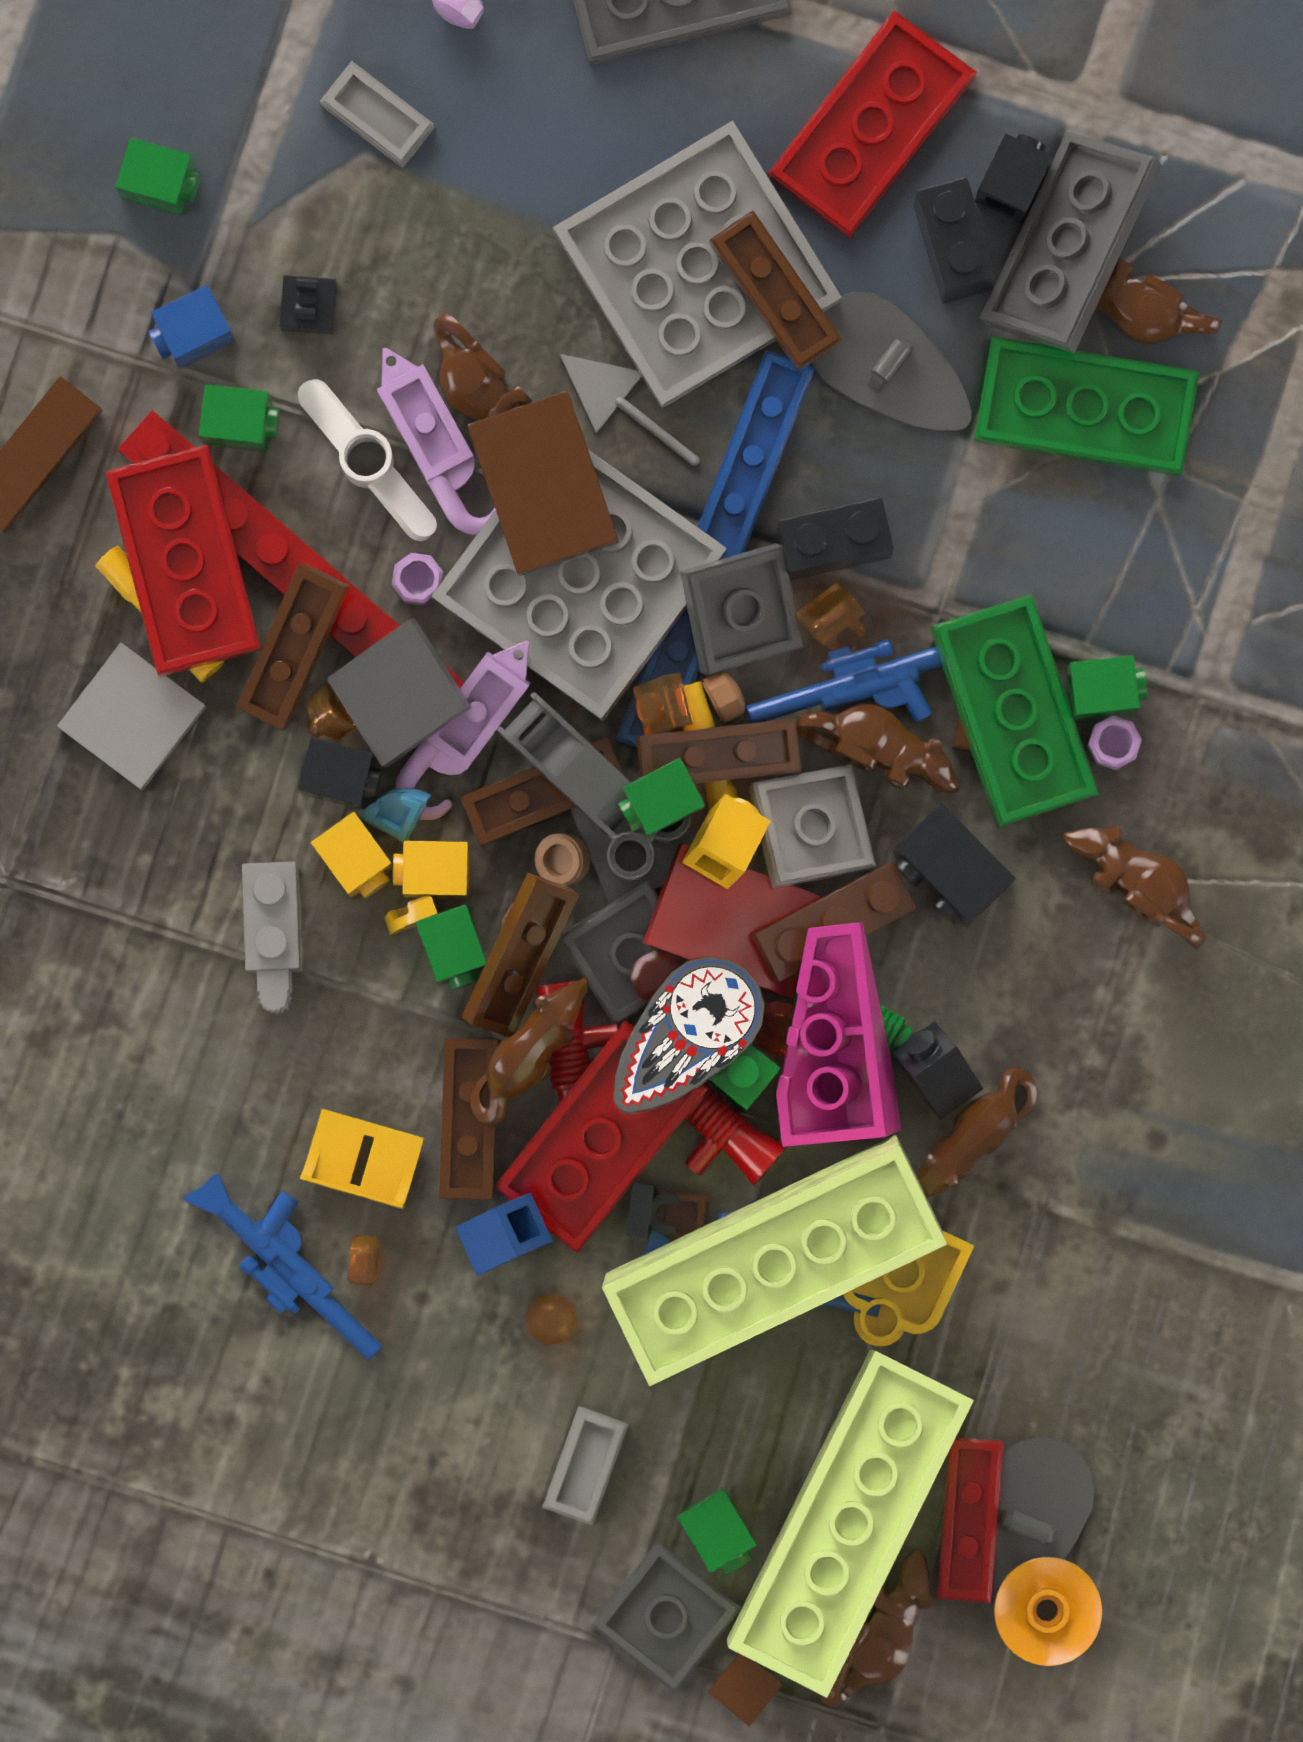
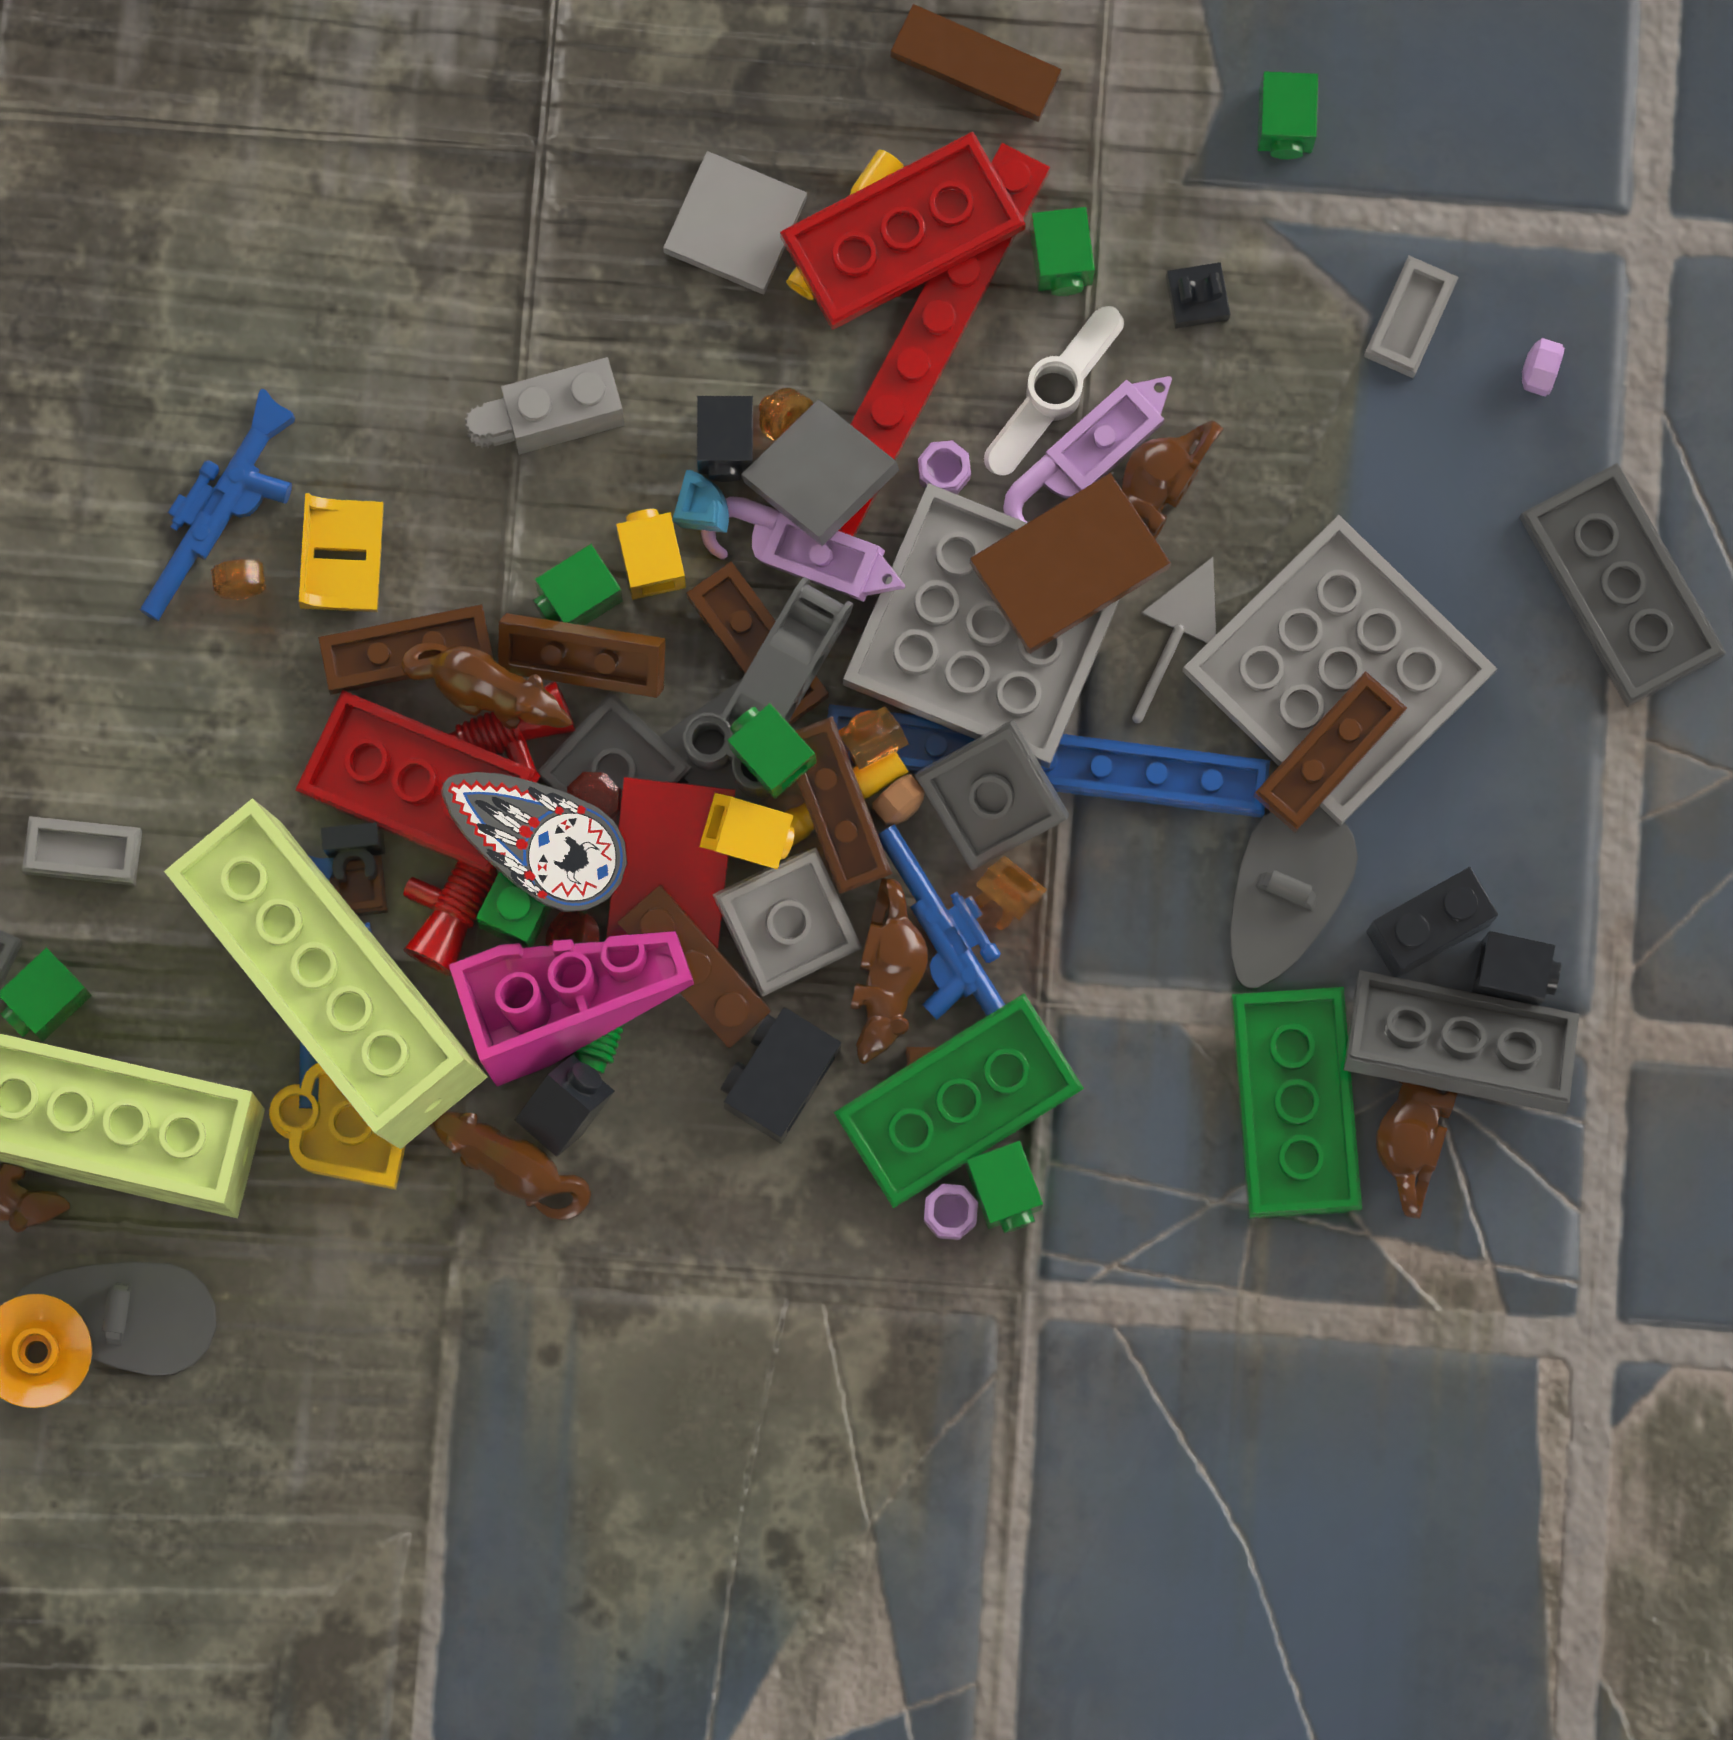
camera: 70 degrees right, 5 degrees down
(190, 328) = (1143, 183): blue brick -> none
(292, 646) = (842, 358): reddish brown plate -> none
(354, 857) = (645, 470): yellow brick -> none
(407, 916) = (603, 543): yellow tile -> none
(503, 1234) = (295, 708): blue brick -> none
(551, 1319) = (222, 781): clear orange tile -> none
(562, 858) = (693, 680): medium nougat tile -> none
(835, 539) = (1089, 874): black brick -> none
(872, 124) = (1533, 814): red tile -> none
(971, 1520) = (112, 1252): red tile -> none
(1152, 882) = (814, 1281): reddish brown animal -> none

